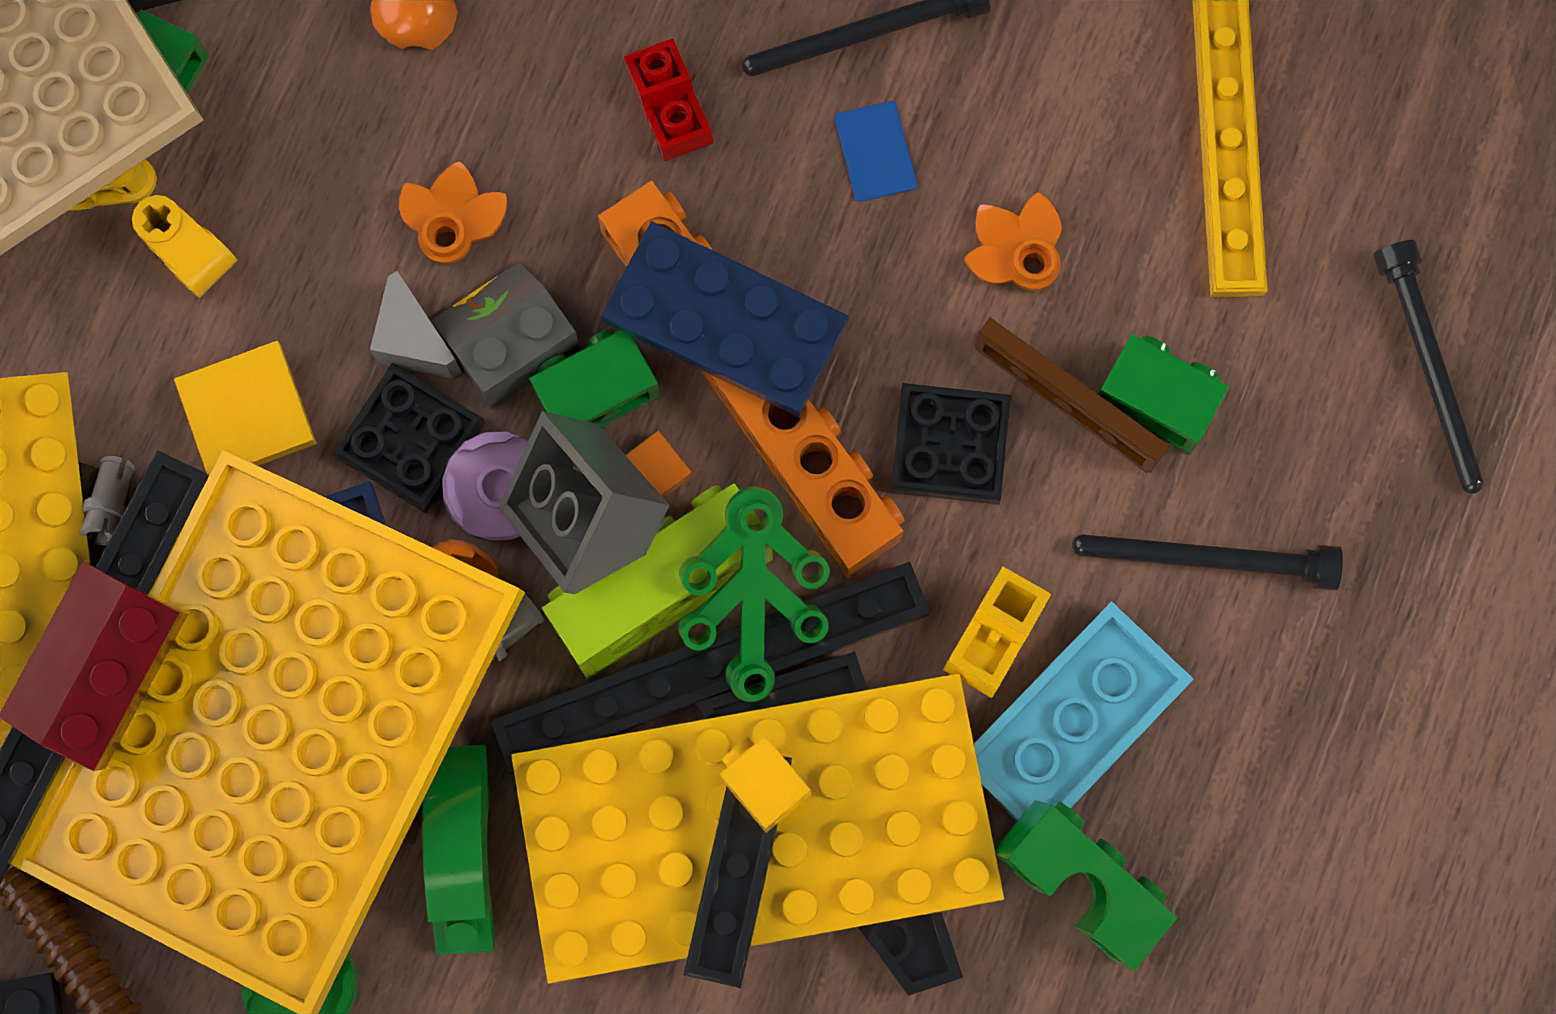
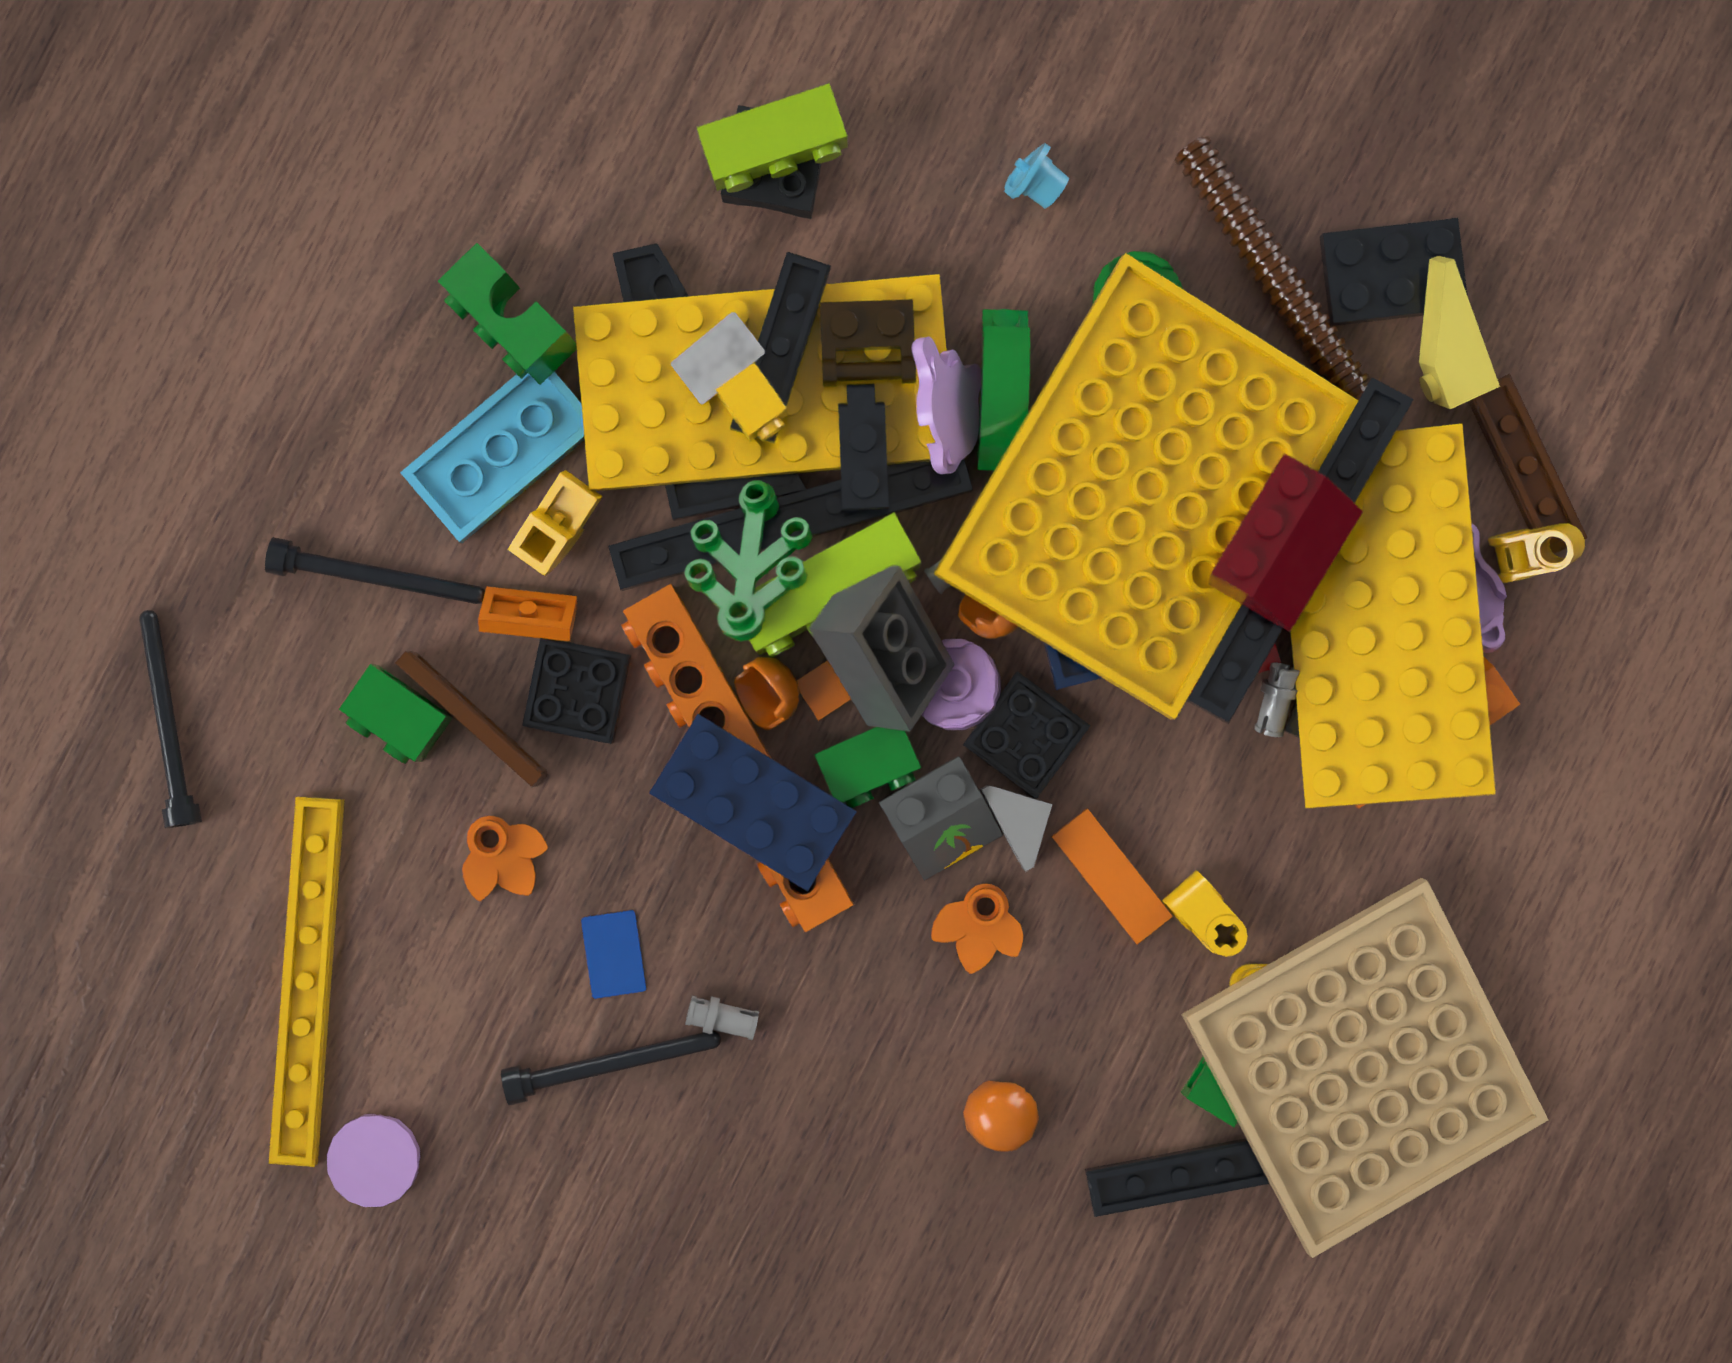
camera: 175 degrees left, 10 degrees up
(246, 407) = (1160, 767): yellow tile -> none
(299, 284) = (1111, 876): none -> orange tile
(525, 815) = (947, 403): none -> lavender tile
(625, 747) = (863, 450): none -> black hinge
(629, 901) = (867, 327): none -> dark brown plate
(668, 99) = (786, 1014): red slope -> none
(720, 453) = (767, 692): none -> orange hair
(740, 87) = (721, 1017): none -> light grey pin
(815, 845) = (717, 357): none -> flat silver sticker
(1018, 524) = (527, 613): none -> orange plate

